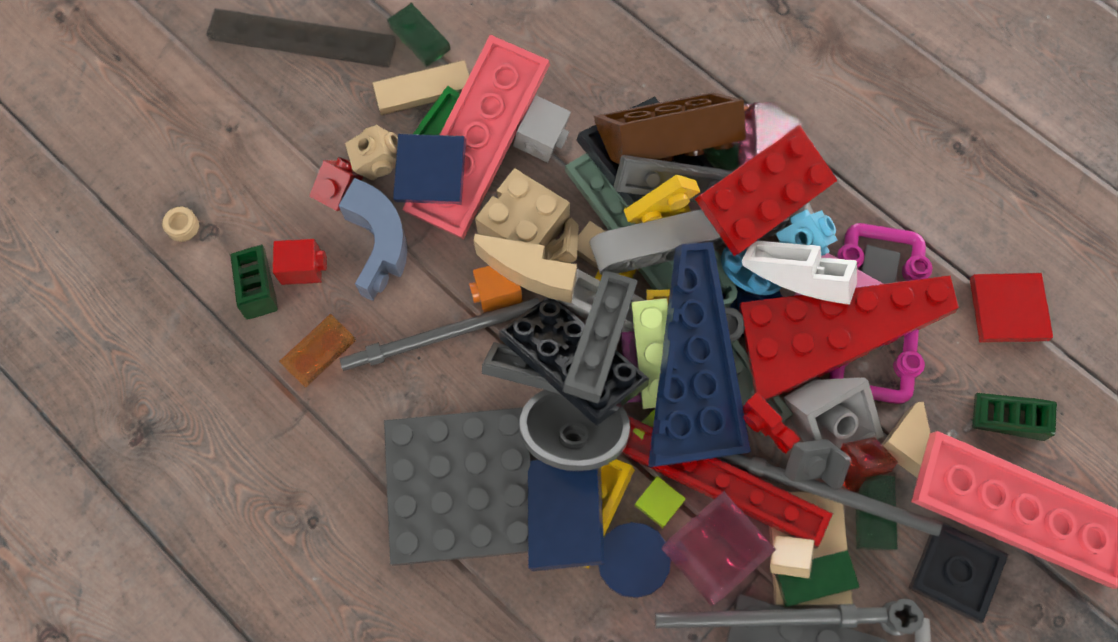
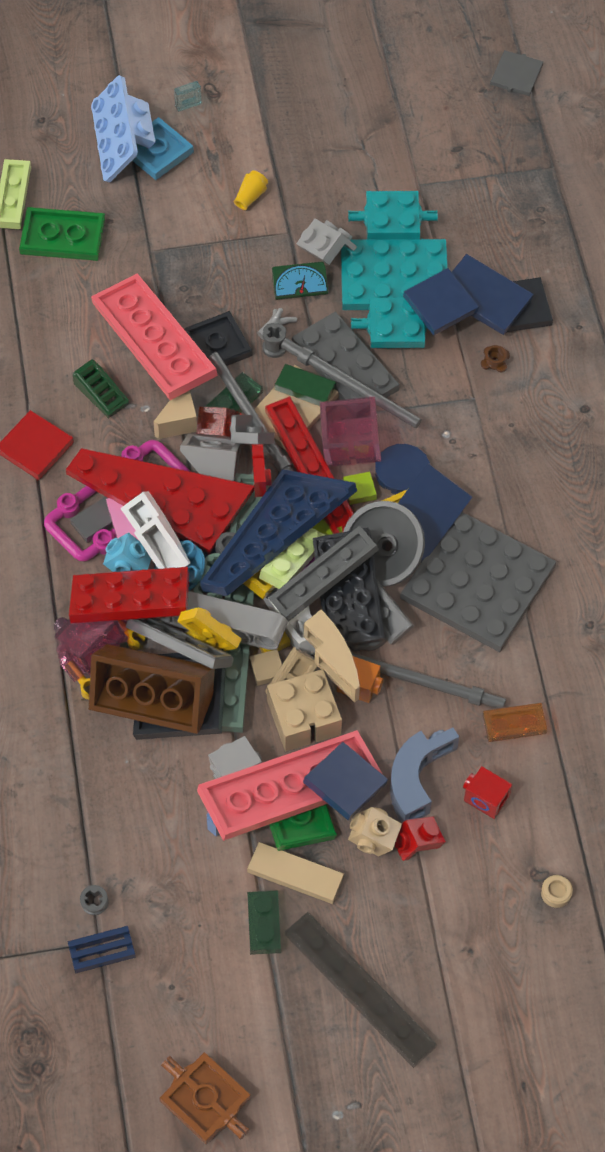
camera: 145 degrees left, 10 degrees down
(257, 301) = (536, 785): dark green slope -> none
(792, 556) = (309, 399): tan tile -> none

